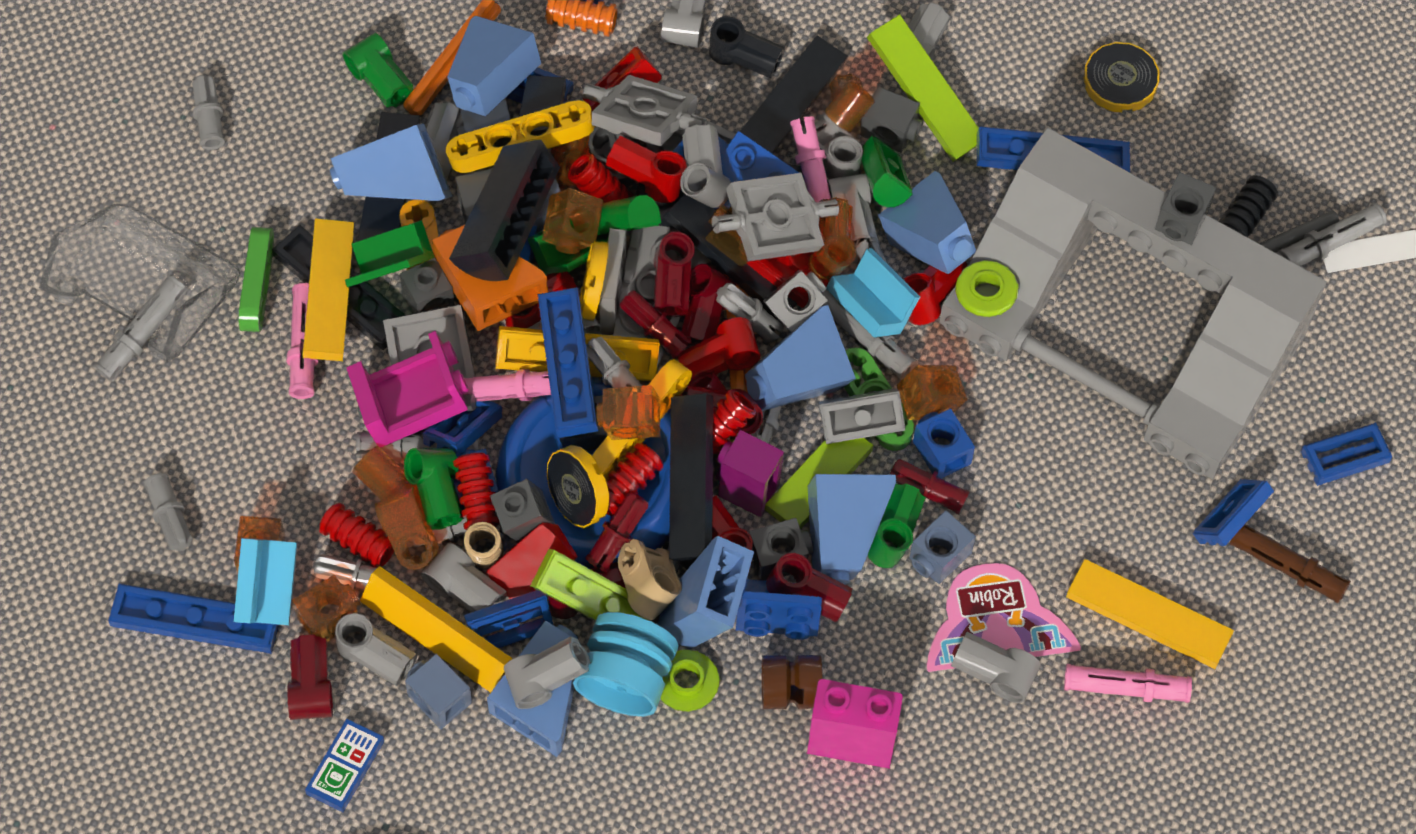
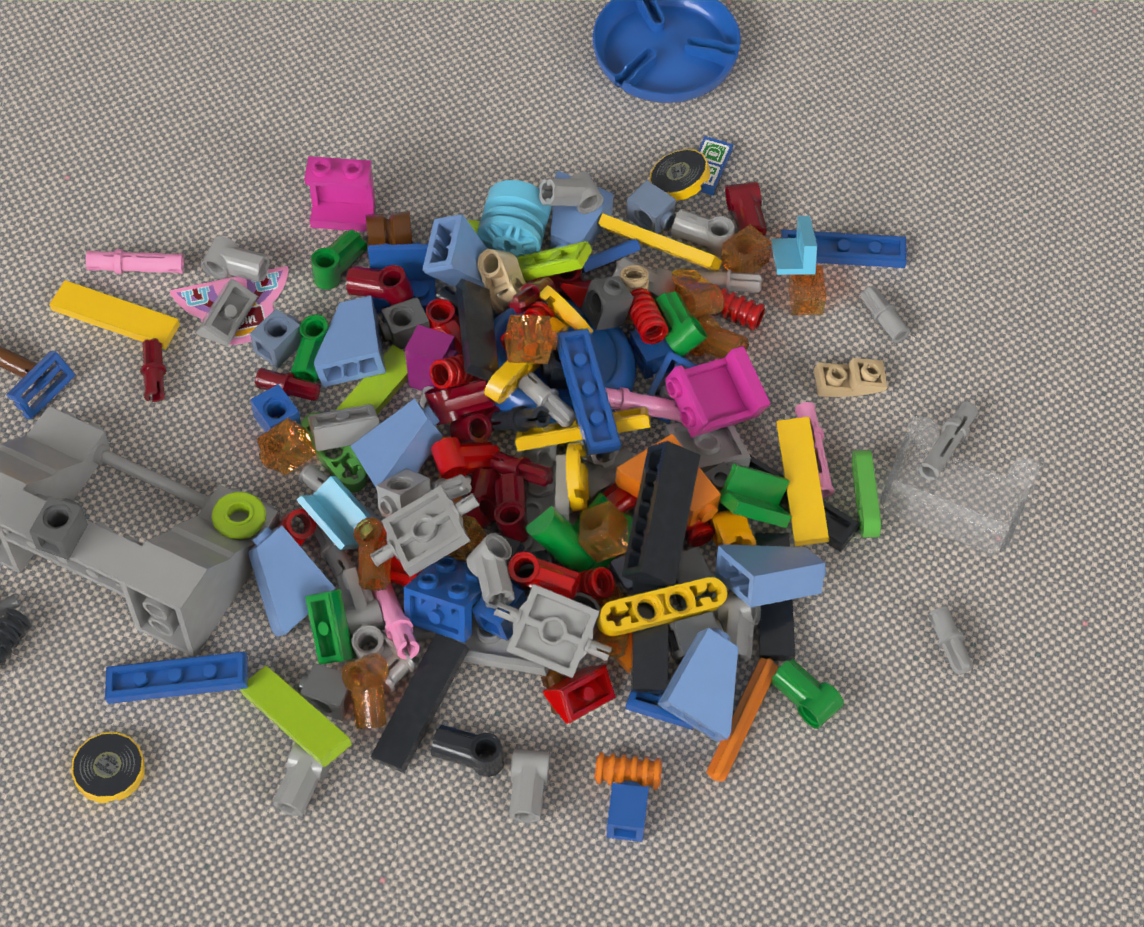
camera: 175 degrees right, 5 degrees down
(235, 434) = (849, 380): none -> tan slope
(389, 737) = (681, 173): none -> black tile
(639, 359) = (520, 418): none -> black pin
(859, 658) = (333, 261): none -> green piece
(1007, 600) = (227, 313): none -> light grey slope
(1096, 523) = (153, 370): none -> dark red axle

